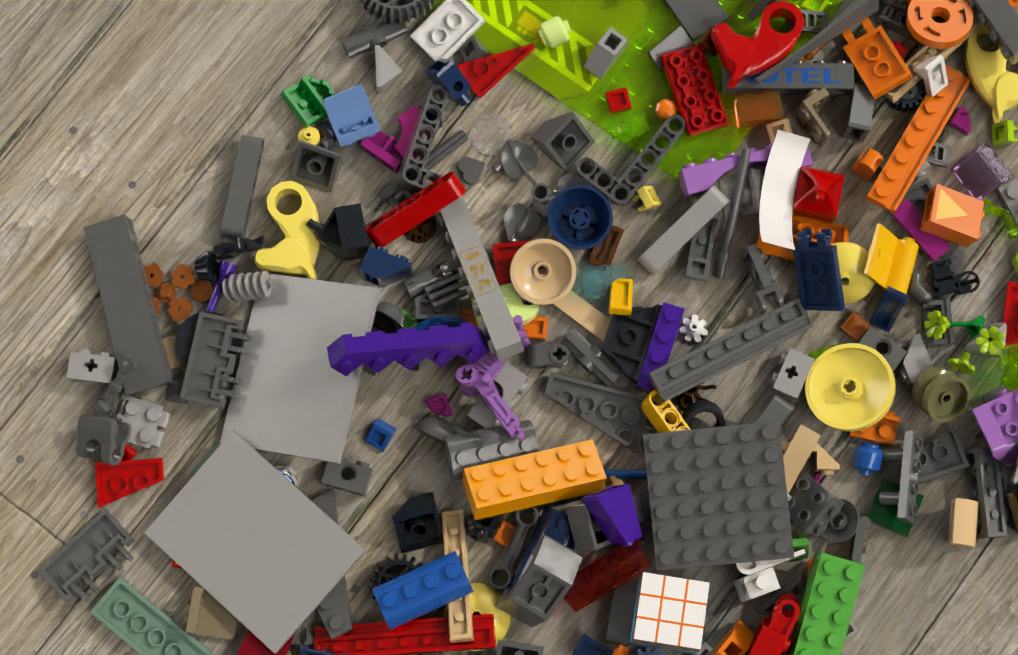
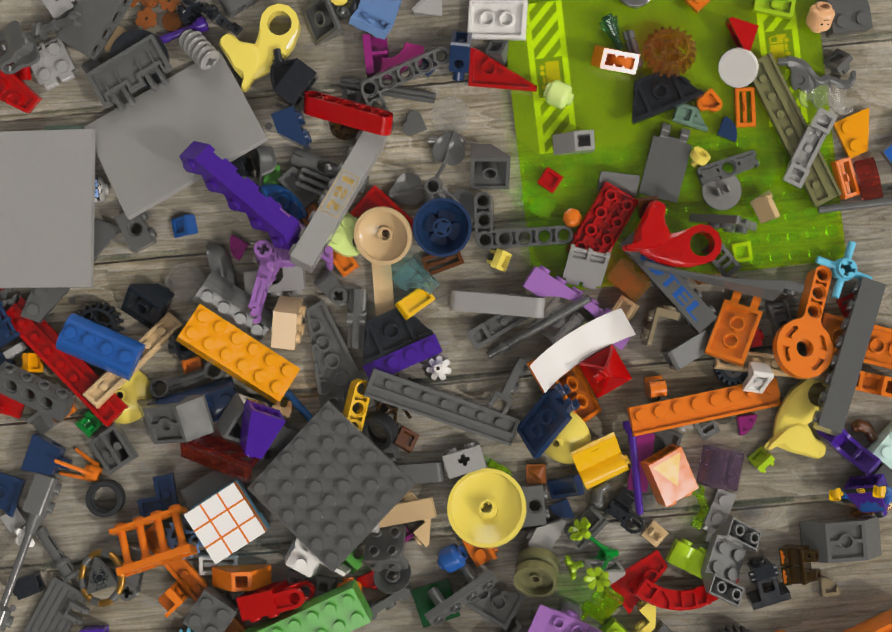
camera: 45 degrees right, 10 degrees up
(545, 414) = (287, 322): none -> tan brick
(717, 131) = (585, 267): none -> light grey plate
(731, 407) = (406, 439): none -> reddish brown plate
(825, 546) = (367, 580): none -> red tile
(905, 330) = (562, 509): none -> dark blue tile
(931, 244) = (634, 468): none -> dark purple piece
(991, 273) = (654, 533): none -> tan tile

